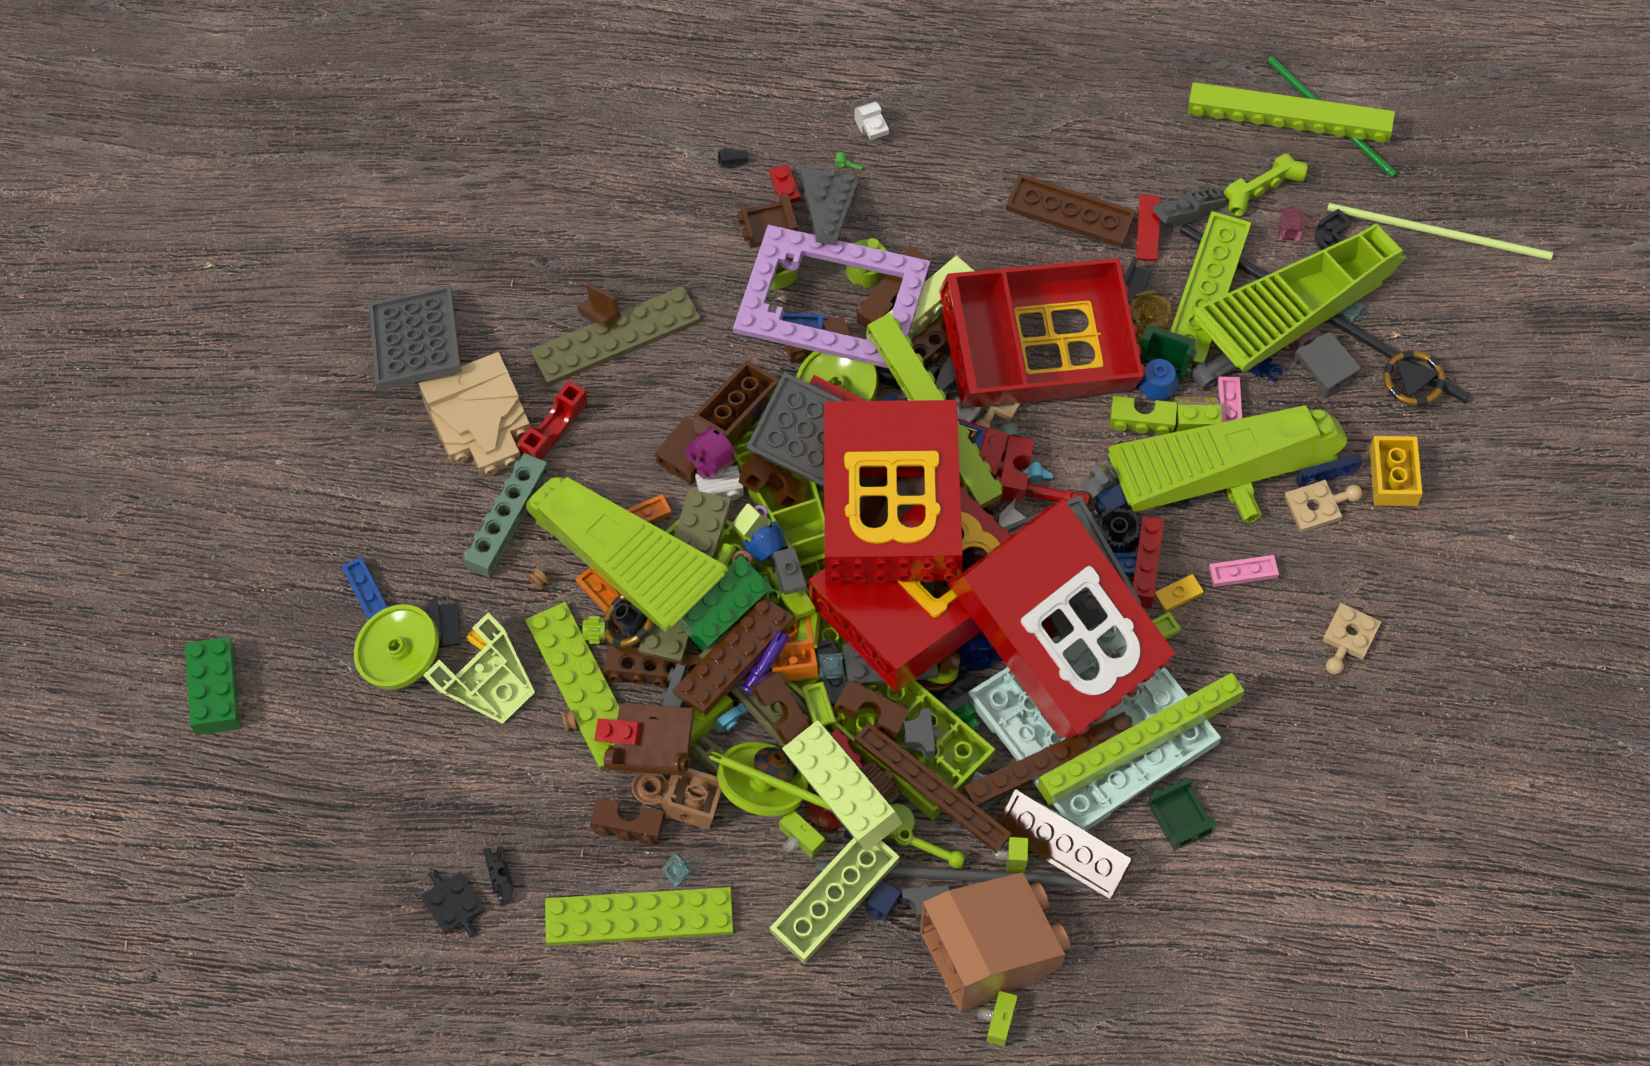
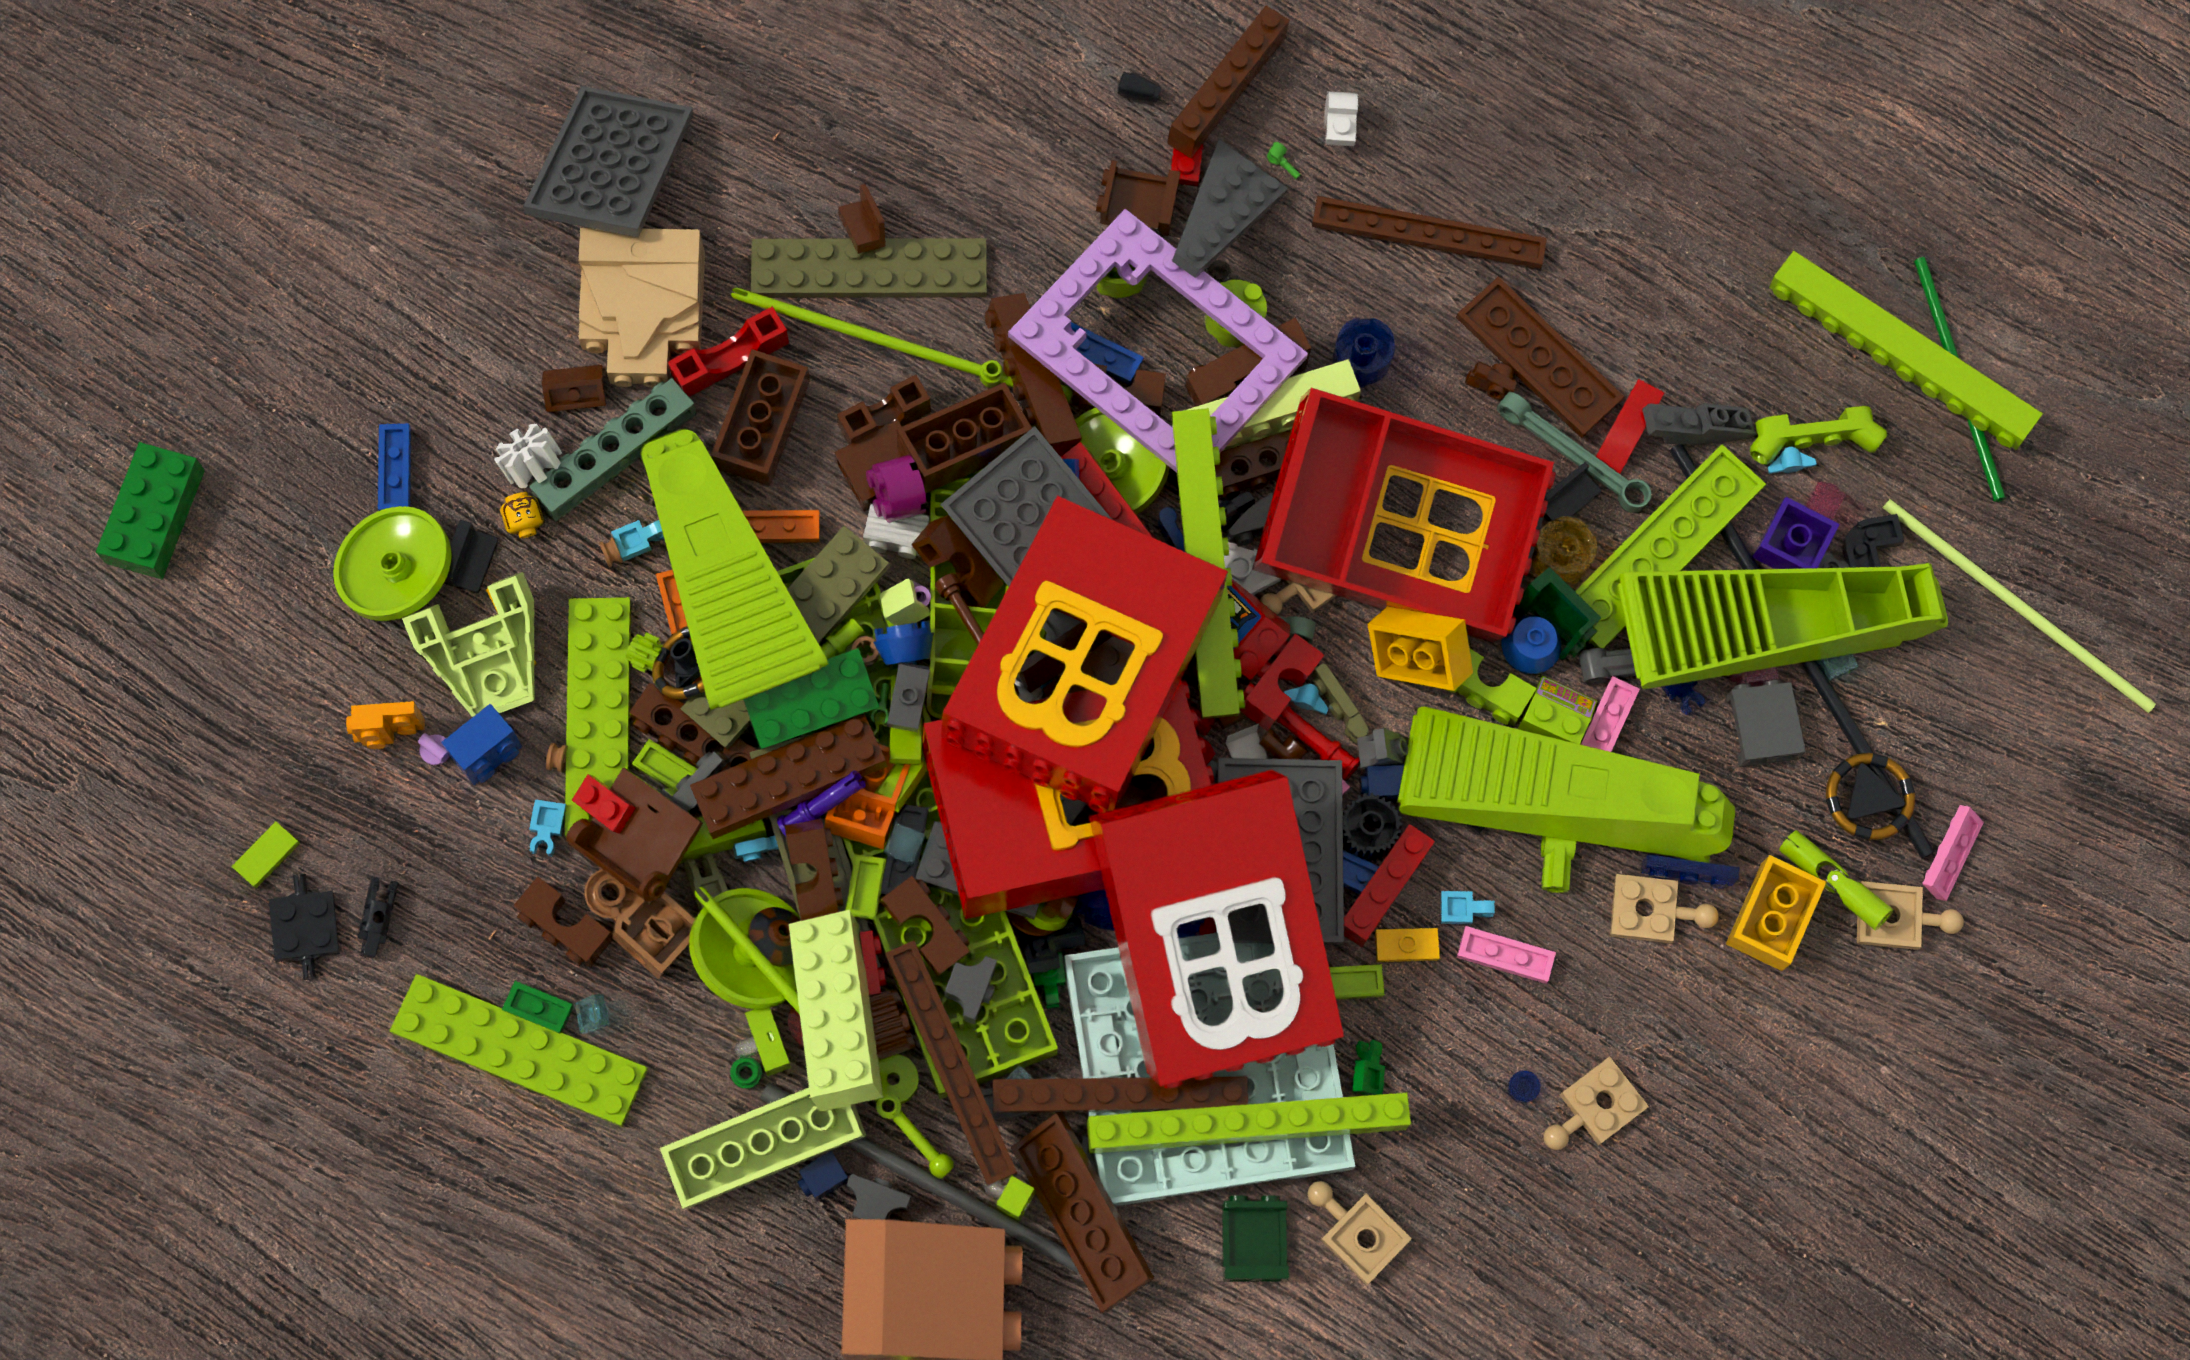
camera: 20 degrees right, 10 degrees up
(402, 870) = (265, 854): none -> lime tile
(438, 747) = (376, 723): none -> light orange plate
(453, 540) = (528, 455): none -> white gear
(460, 489) = (573, 388): none -> reddish brown panel
(467, 580) = (521, 515): none -> yellow head
(483, 752) = (432, 749): none -> lavender plate
(517, 732) = (482, 745): none -> blue brick
(550, 563) = (635, 539): none -> medium azure plate
(583, 764) = (546, 821): none -> medium azure plate
(595, 450) = (760, 417): none -> reddish brown brick
(638, 882) = (538, 1007): none -> green plate
(641, 694) = (662, 765): none -> lime tile
(684, 403) = (904, 403): none -> reddish brown arch
(728, 365) = (990, 372): none -> lime bar
(757, 351) = (1033, 383): none -> reddish brown brick
(777, 499) = (950, 589): none -> reddish brown piece
(789, 128) = (1228, 81): none -> reddish brown brick
(800, 855) = (741, 1064): none -> green plate
(961, 166) = (1429, 232): none -> reddish brown plate
(962, 243) = (1362, 336): none -> clear blue brick
(1030, 508) = (1289, 749): none -> reddish brown plate
(1048, 235) = (1494, 379): none -> reddish brown plate
(1058, 466) = (1340, 703): none -> olive hinge
(1074, 247) = (1519, 412): none -> sand green piece
(1094, 406) = (1420, 648): none -> yellow brick
(1196, 678) = (1368, 1073): none -> green plate
(1200, 555) = (1459, 907): none -> medium azure plate
(1240, 769) = (1343, 1236): none -> tan plate
(1257, 206) = (1791, 461): none -> medium azure piece
(1285, 246) = (1795, 537): none -> dark purple brick
(1297, 645) = (1524, 1086): none -> clear blue tile
(1432, 437) = (1852, 893): none -> lime piece
(1472, 433) = (1908, 928): none -> tan plate
(1481, 390) = (1953, 852): none -> bright pink plate

